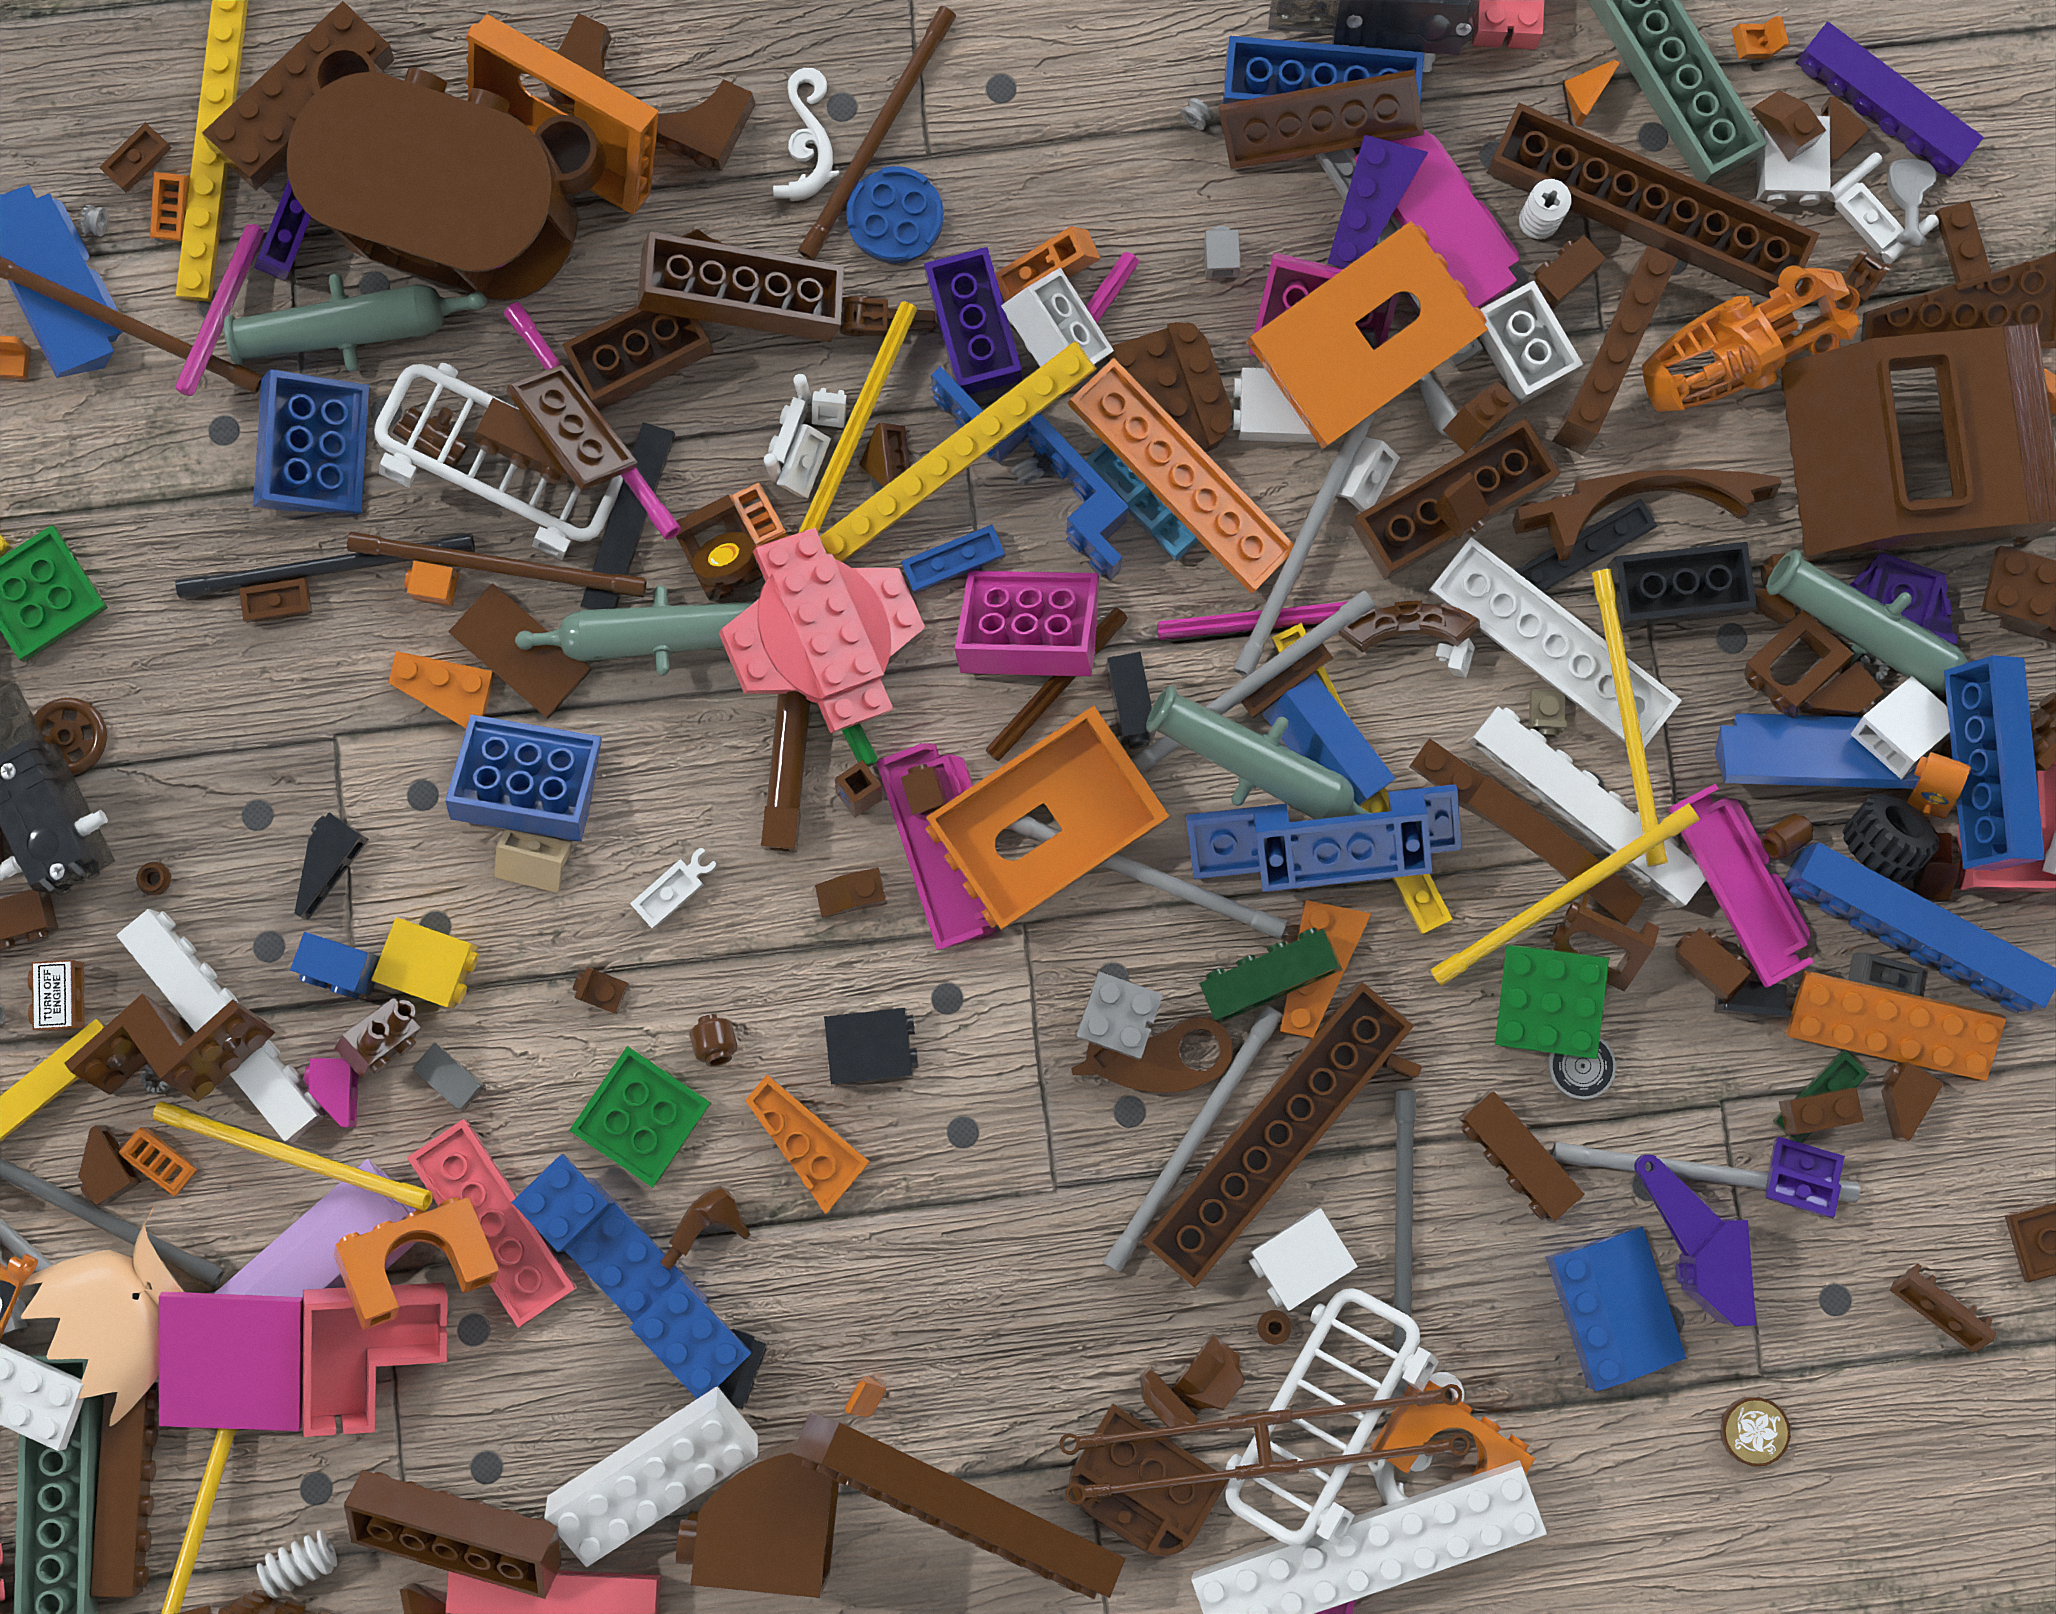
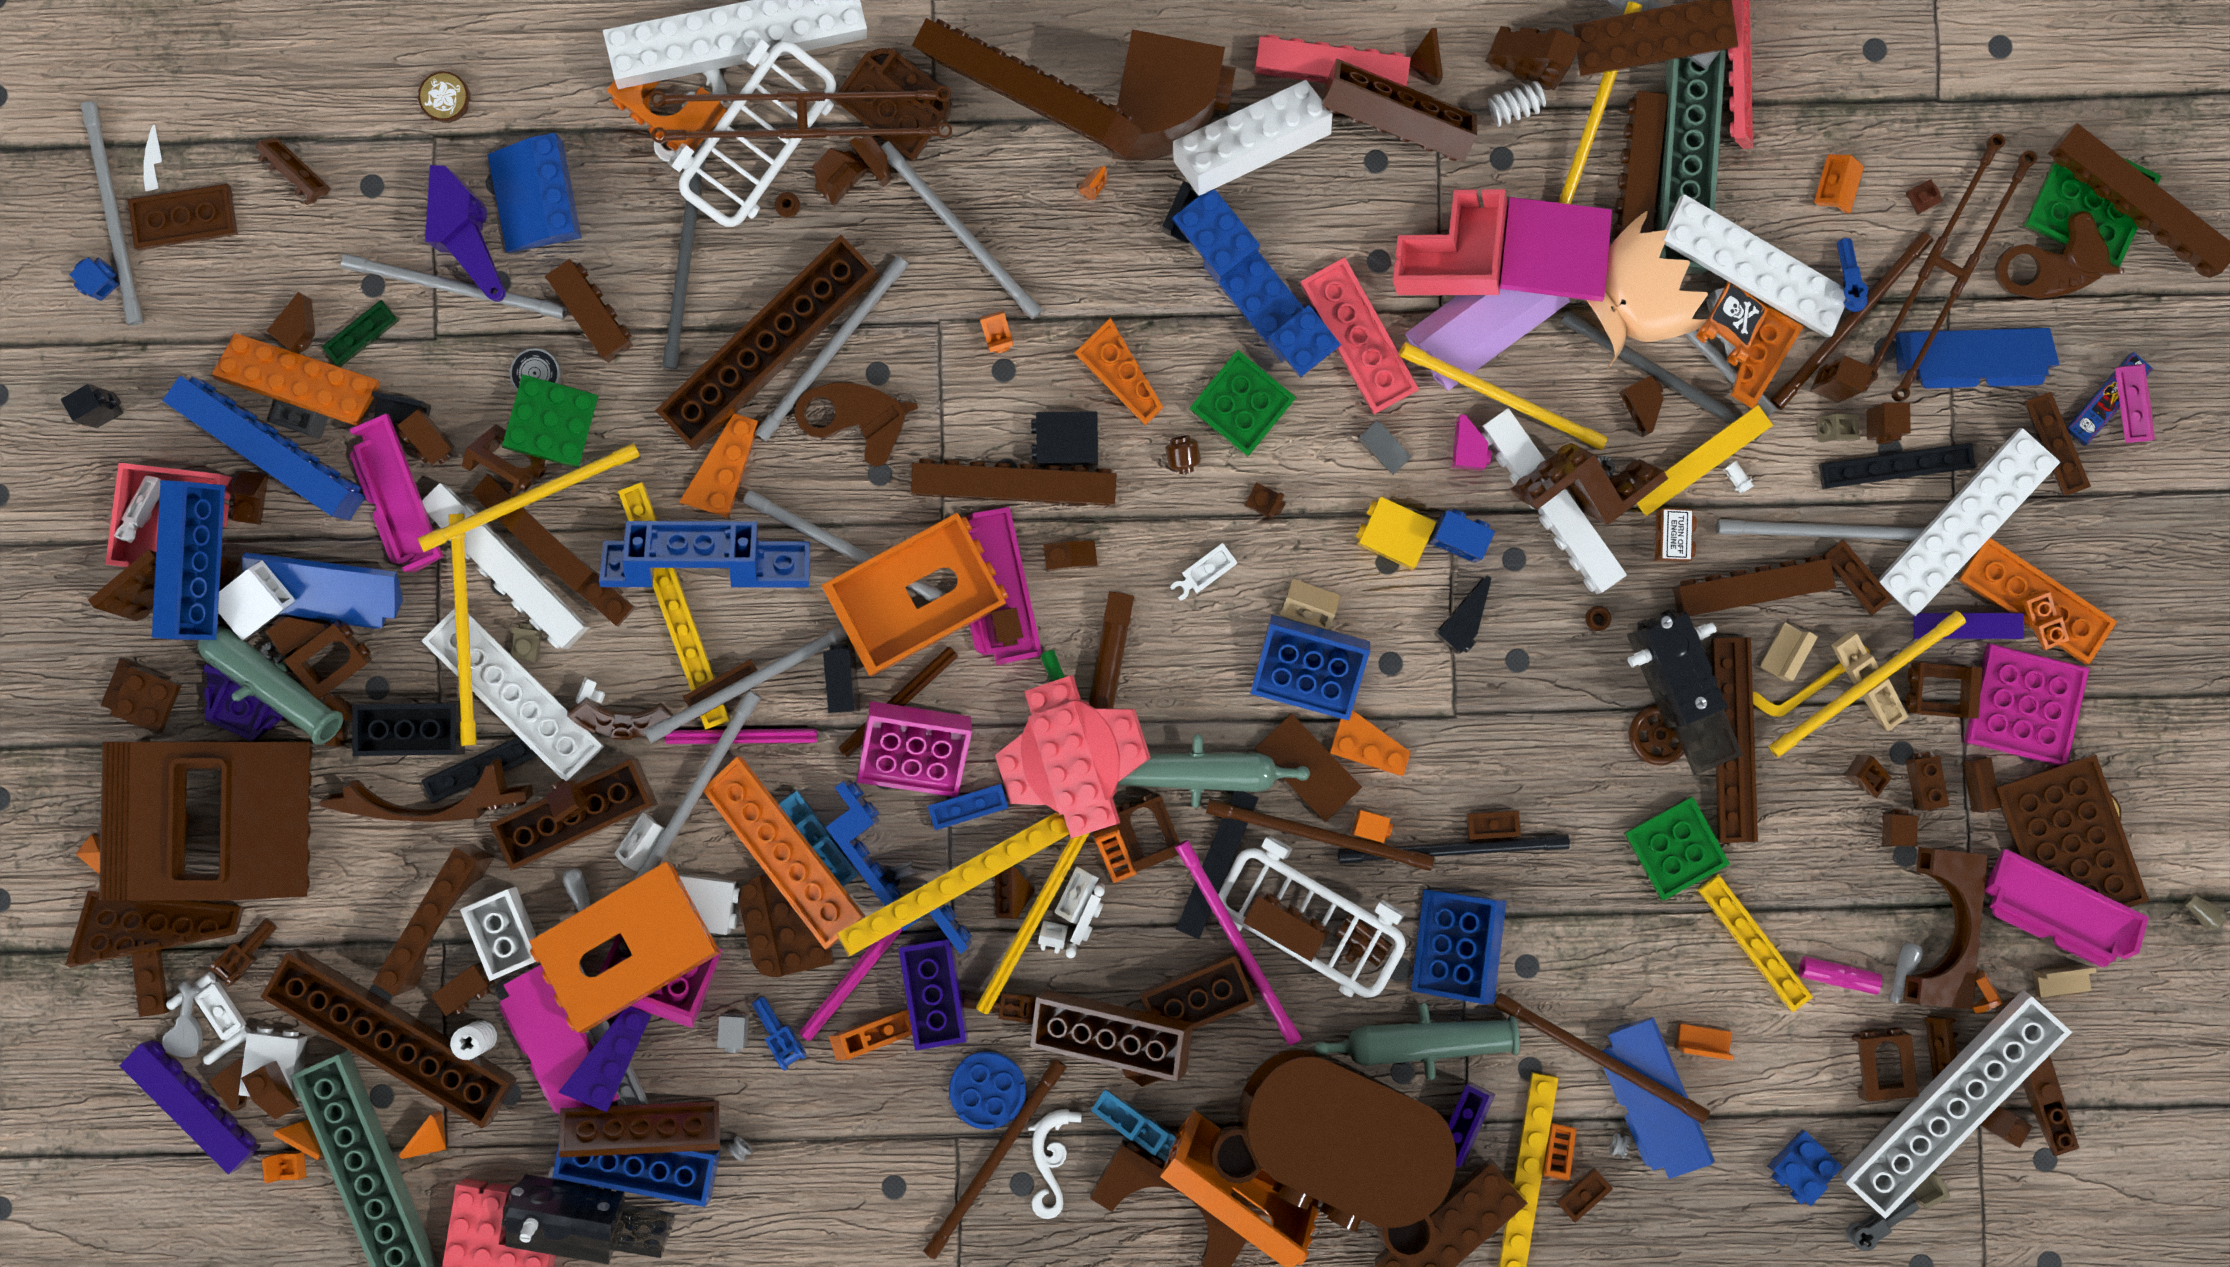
camera: 170 degrees left, 5 degrees up
(129, 1153) = (1598, 411): orange slope -> none
(219, 309) = (1523, 1061): dark pink axle -> none
(379, 1037) = (1433, 478): reddish brown brick -> none
(449, 1227) = (1387, 330): orange arch -> none
(571, 427) = (1252, 934): tile -> none
(704, 188) = (1134, 1124): none -> dark azure slope
(710, 1208) = (1194, 330): reddish brown animal -> none
(725, 558) = (1143, 821): reddish brown tile -> none
(858, 788) = (1056, 632): reddish brown brick -> none
(932, 979) = (1013, 484): none -> reddish brown brick
(945, 1229) = (1022, 298): none -> light grey piece
(975, 1179) = (996, 332): none -> orange bracket
(1052, 317) = (867, 983): white slope -> none
(1118, 1015) = (876, 440): light grey piece -> none
(1160, 249) = (781, 1039): none -> blue connector
(1254, 758) = (749, 620): sand green piece -> none
(1271, 975) = (759, 459): dark green brick -> none
(1301, 1259) = (761, 250): white brick -> none
(1328, 736) = (694, 630): blue slope -> none
(1402, 1066) = (666, 383): reddish brown tile -> none
(1481, 416) = (545, 876): reddish brown brick -> none
(1744, 75) = (301, 1137): none -> orange slope
(1752, 340) = (324, 915): orange piece -> none
(1787, 836) = (356, 529): reddish brown brick -> none
(1804, 1177) = (380, 273): dark purple slope -> none
(1821, 1111) = (360, 319): reddish brown brick -> none
(1891, 837) = (276, 517): black tyre -> none
(1938, 784) = (233, 551): orange door -> none

